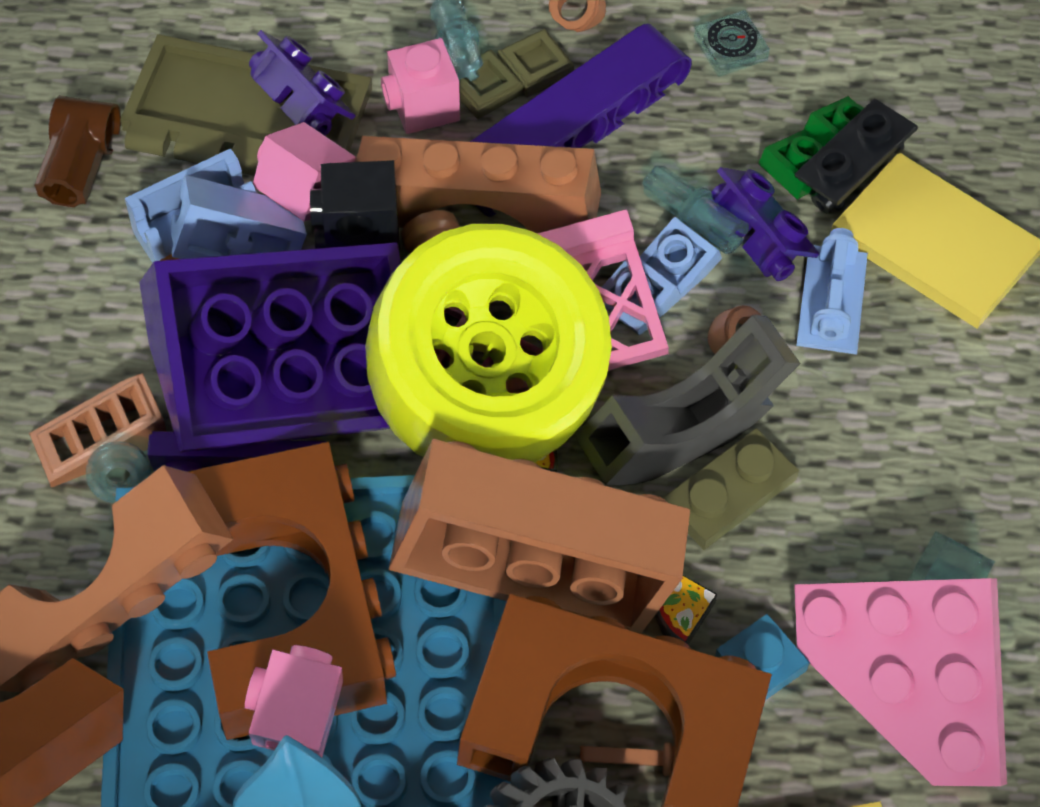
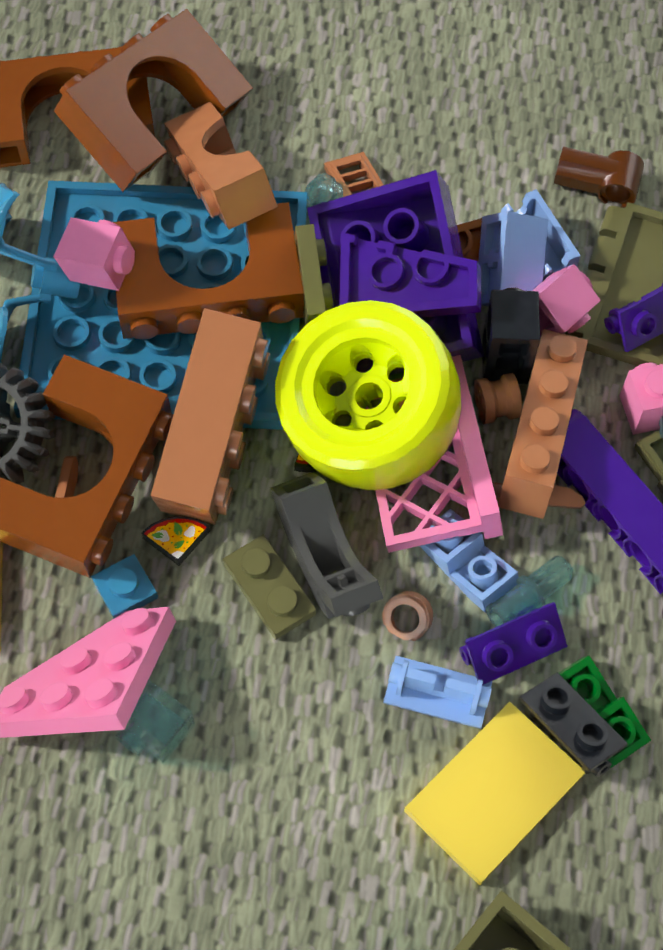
camera: 95 degrees right, 5 degrees up
(273, 432) = (311, 257): none -> olive plate
(318, 313) = (418, 281): none -> dark purple wing

